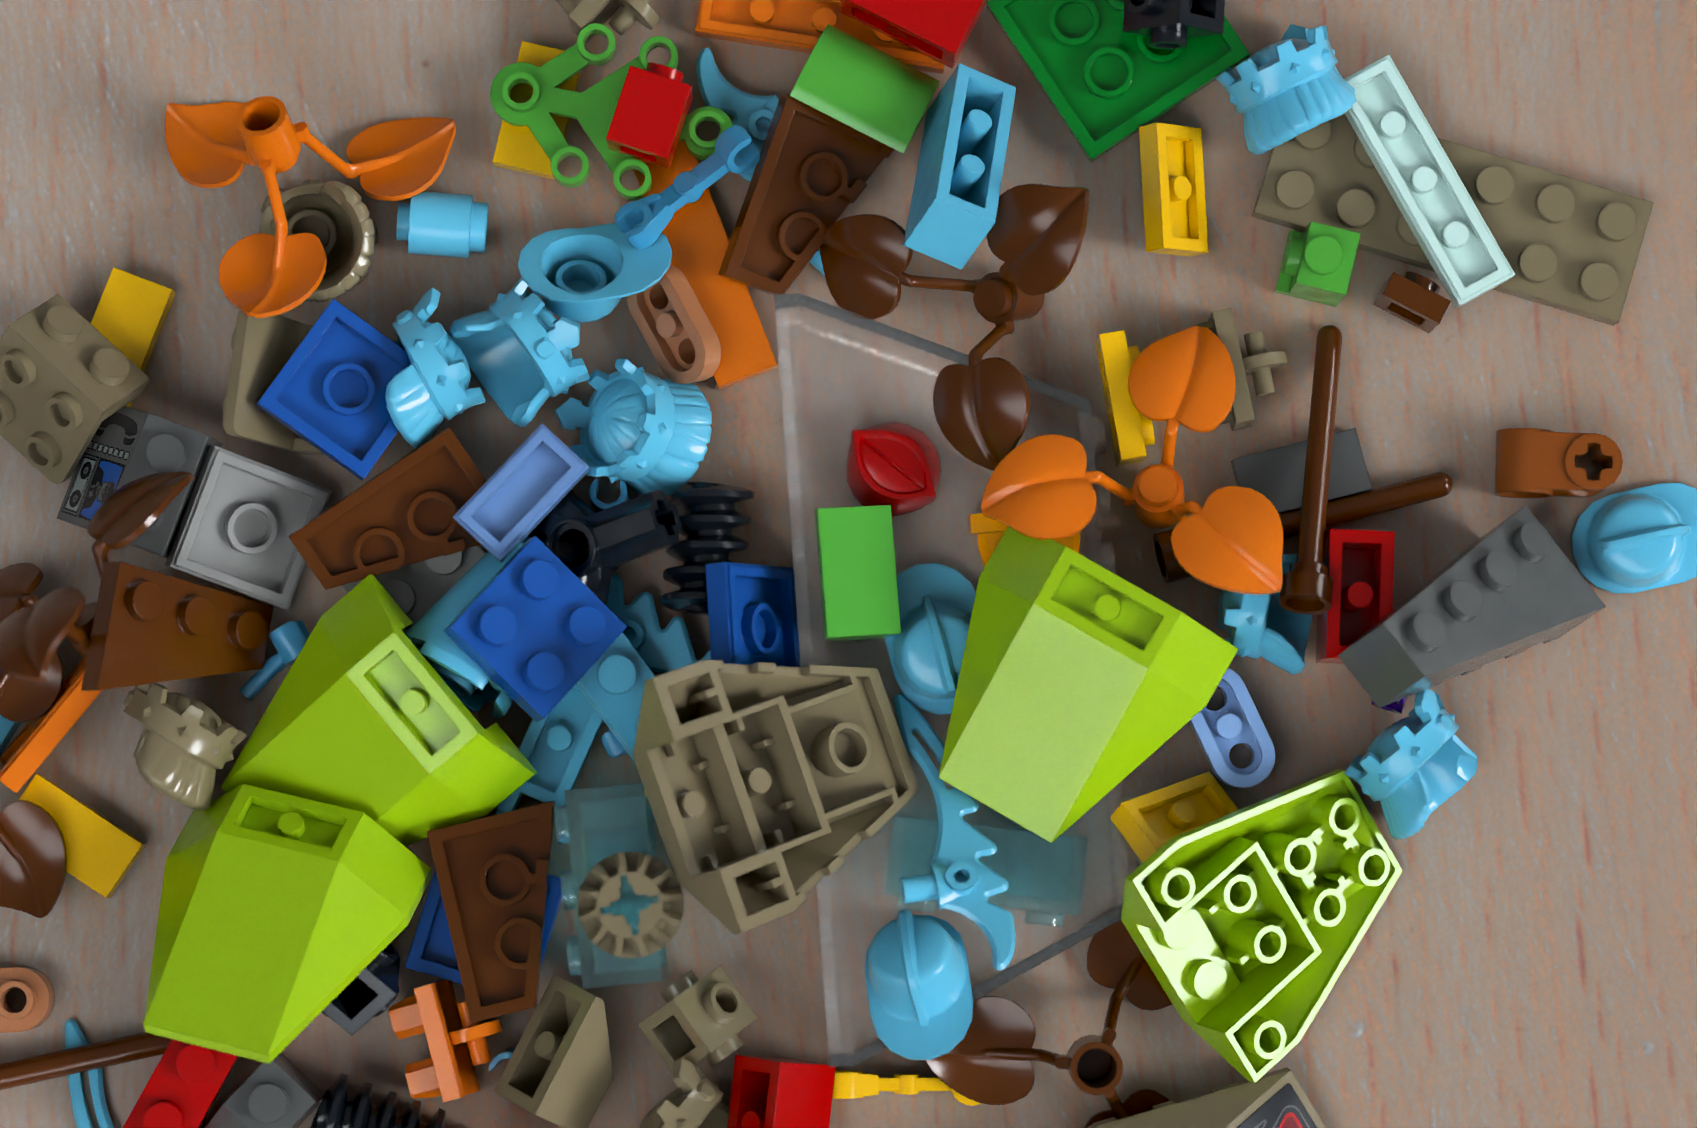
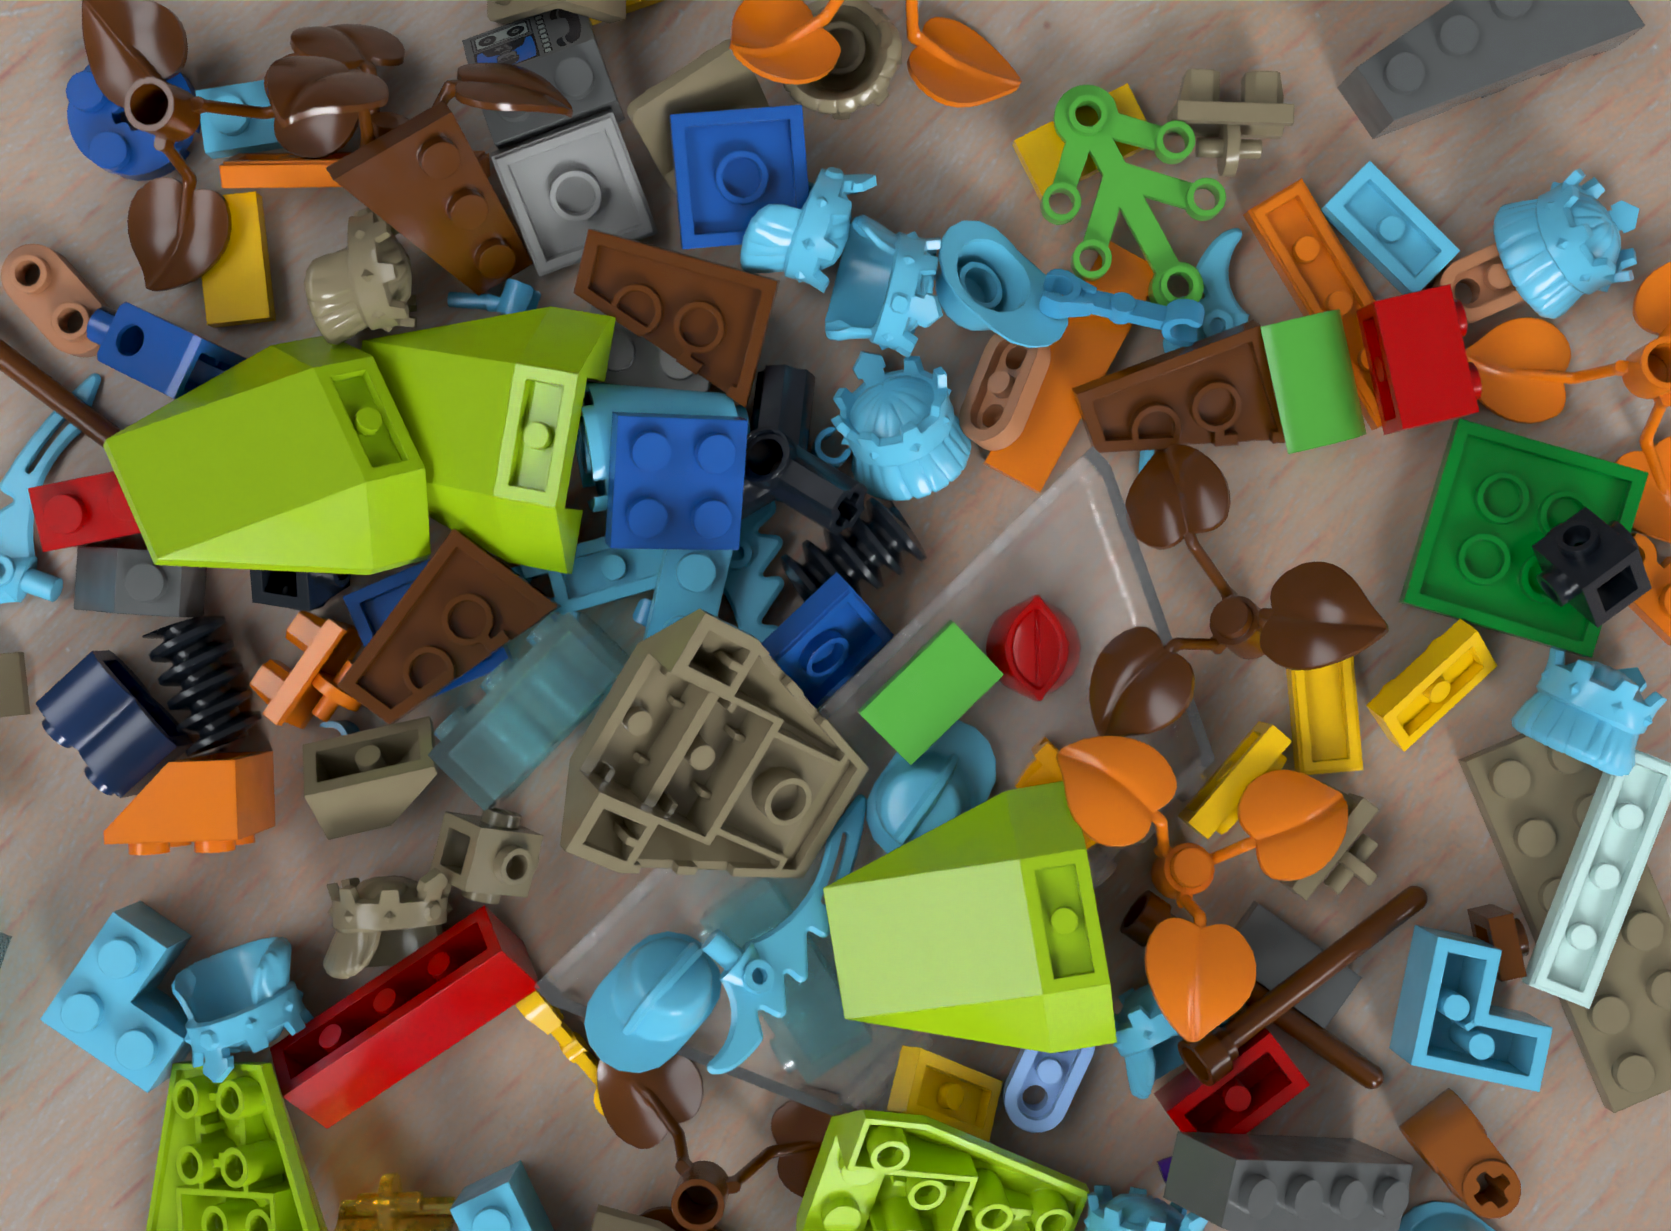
camera: 50 degrees right, 5 degrees up
(97, 947) = (156, 350): none -> blue torso
(443, 224) = (933, 143): medium azure brick -> none
(521, 493) = (773, 380): medium blue tile -> none
(650, 114) = (1155, 230): red brick -> none
(657, 923) = (552, 735): dark tan gear -> none
(960, 167) = (1316, 509): medium azure brick -> none
(1127, 286) = (1325, 719): none -> yellow tile
(1318, 264) = (1468, 846): bright green brick -> none
(1437, 388) = (1449, 1019): none -> medium azure brick

